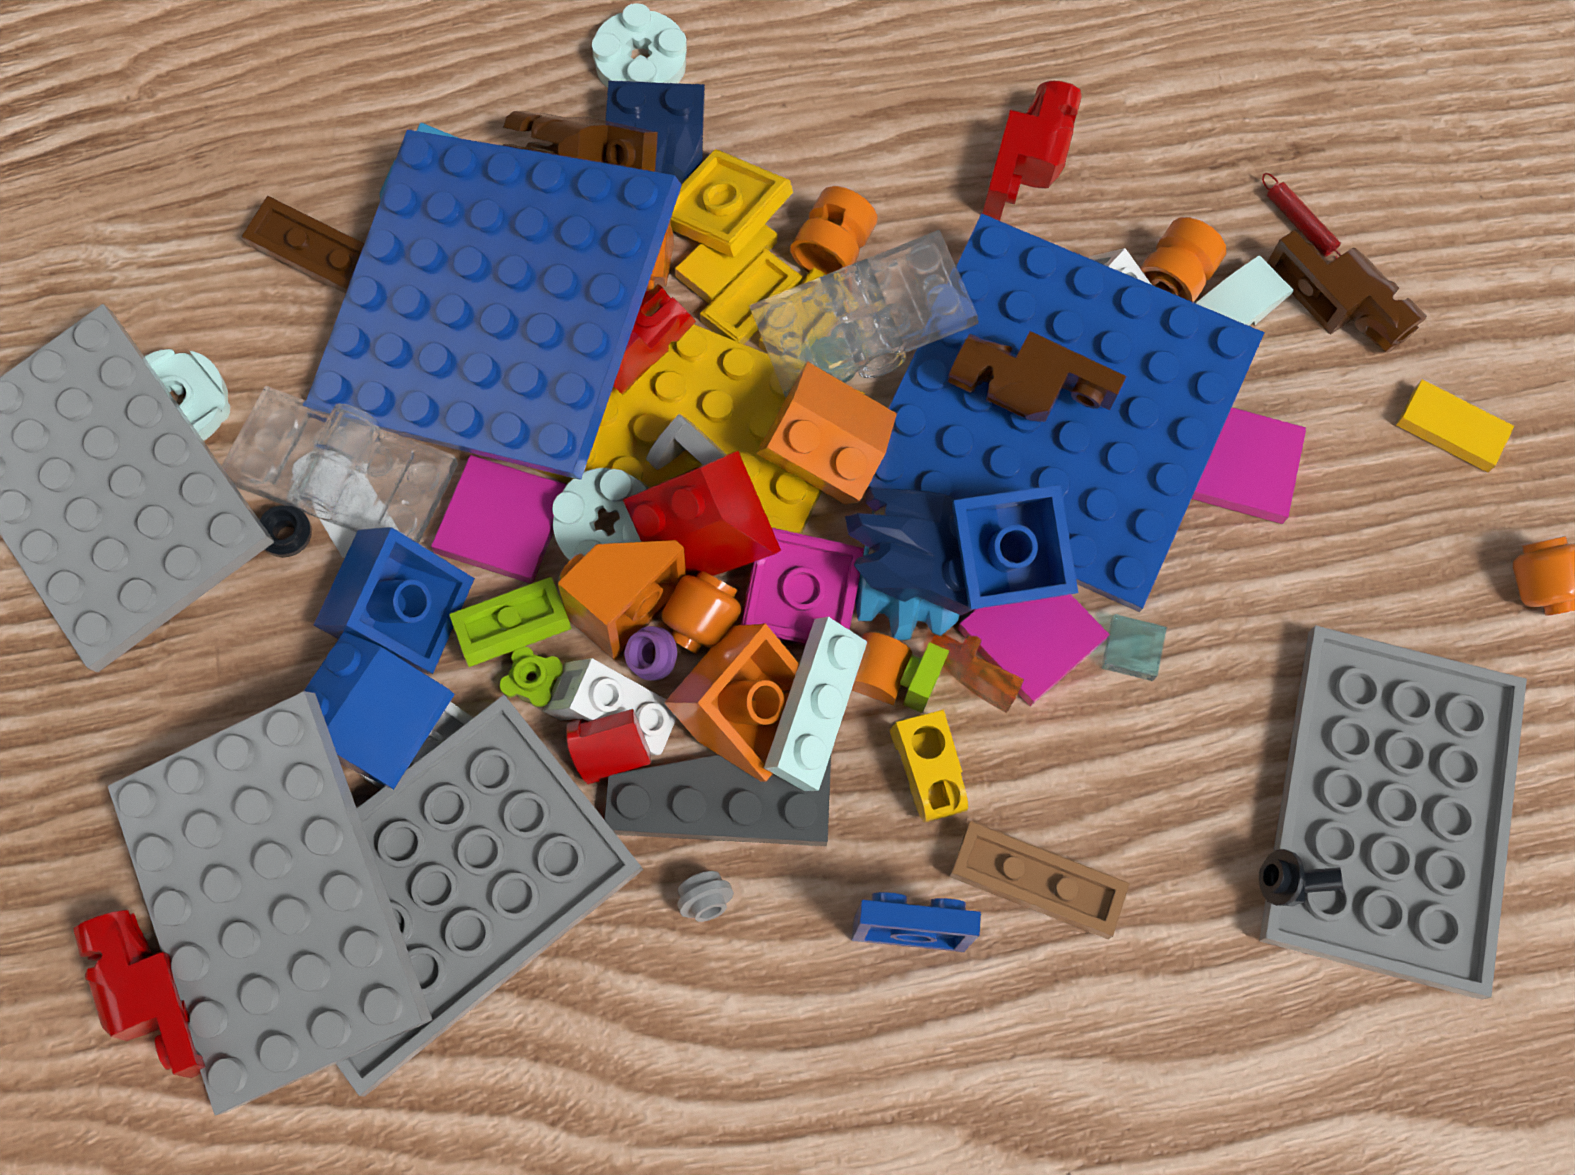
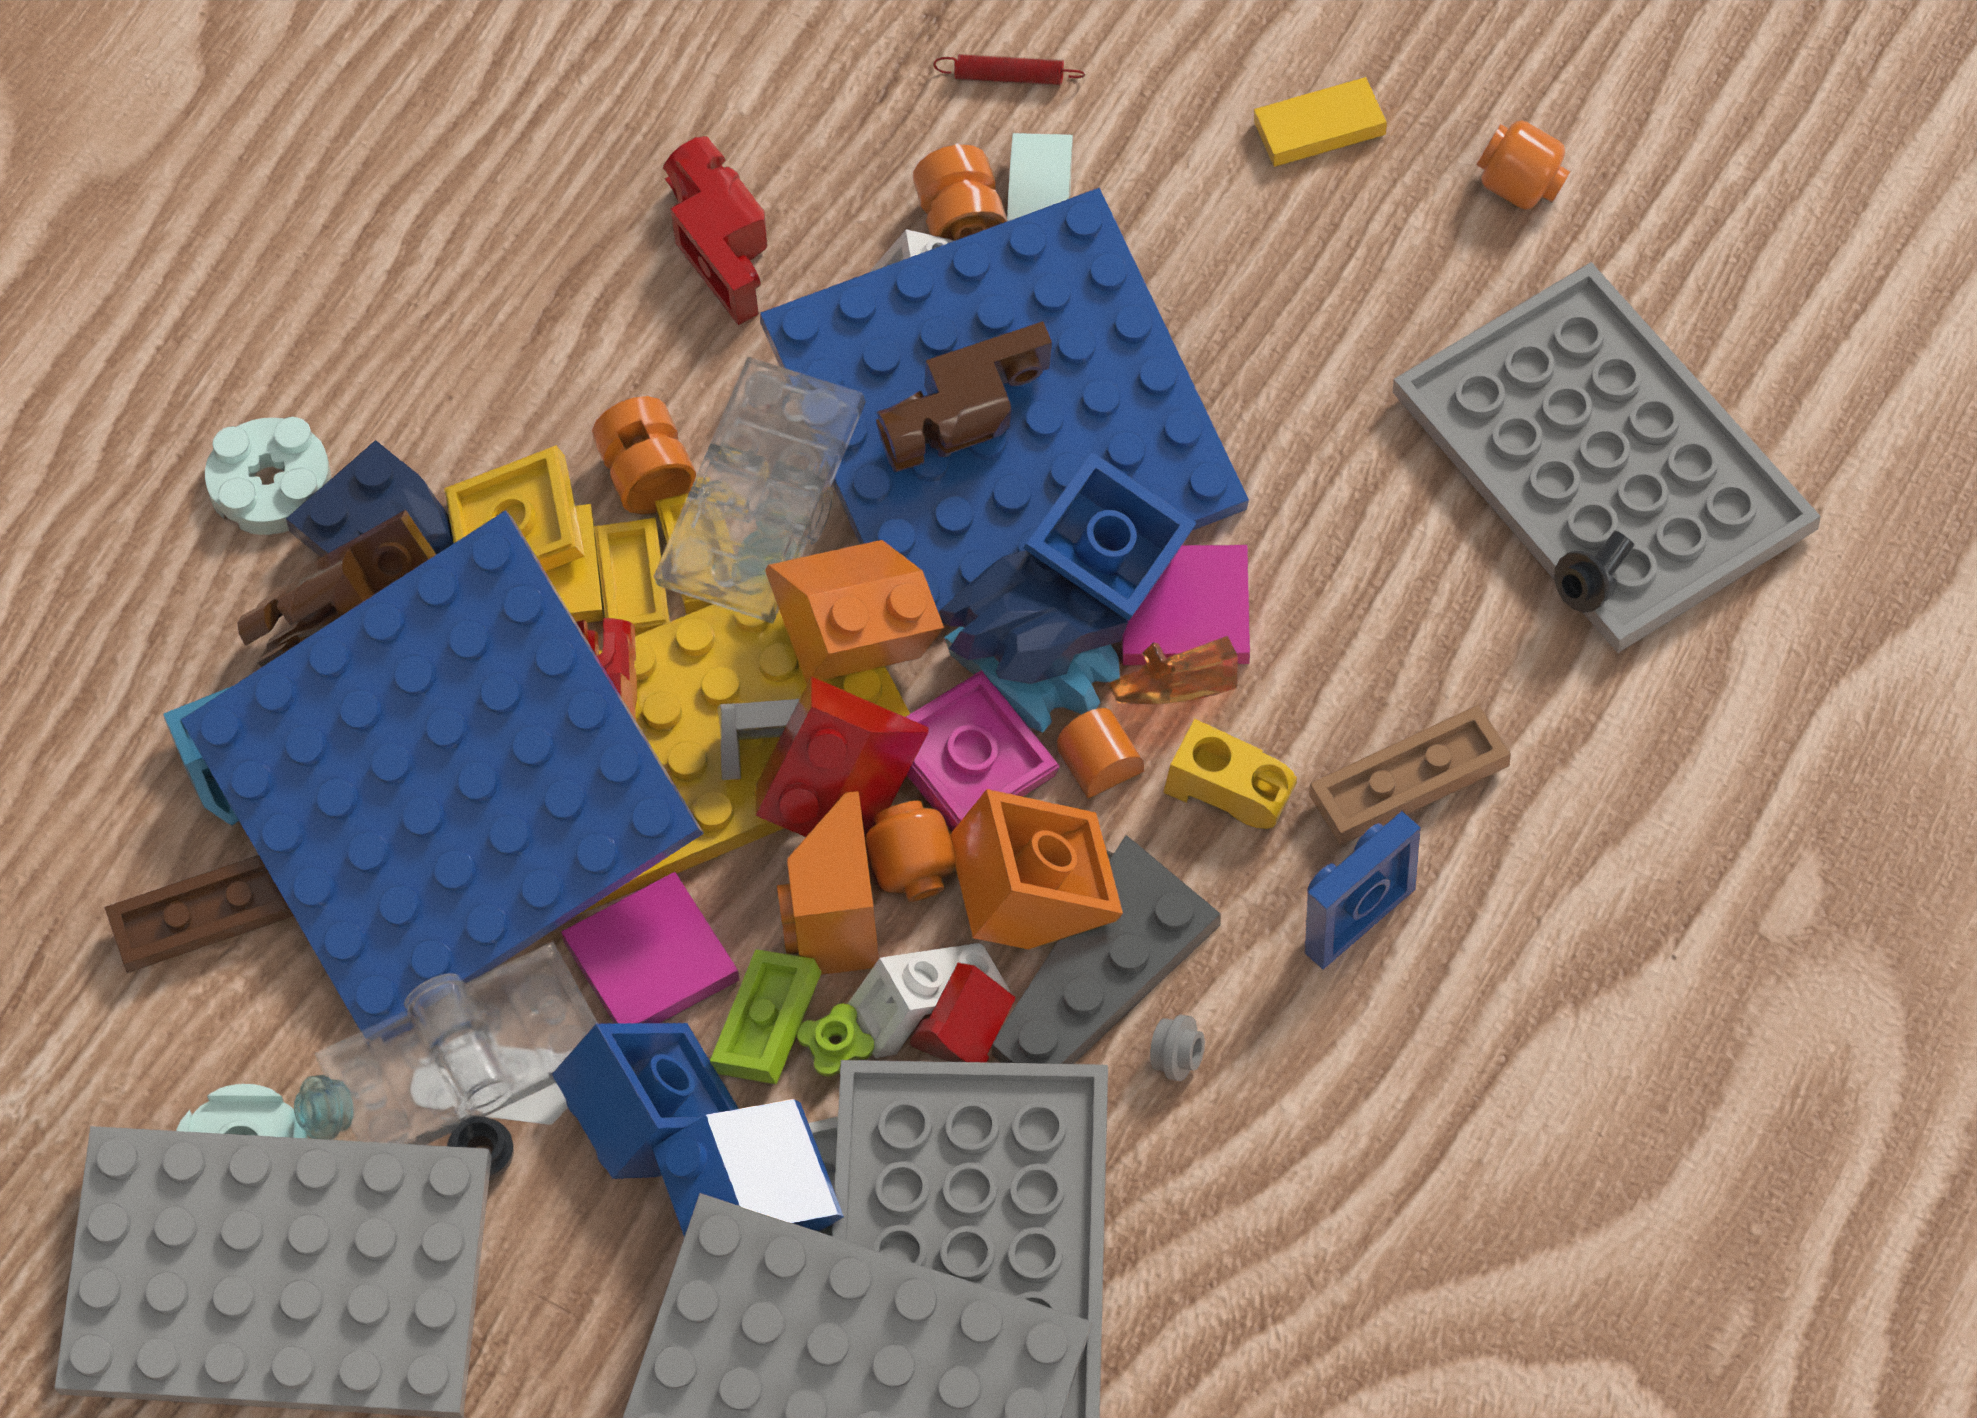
camera: 40 degrees left, 10 degrees down
(228, 419) = (323, 1107): none -> clear light blue plate
(578, 506) = (712, 878): light aqua plate -> none
(639, 653) = (891, 926): medium lavender plate -> none
(816, 704) = (1092, 817): light aqua plate -> none
(922, 676) = (1146, 719): lime plate -> none
(1134, 647) = (1276, 538): clear light blue tile -> none
(1253, 466) = (1207, 306): dark pink tile -> none
(1346, 292) = (1115, 97): reddish brown plate -> none

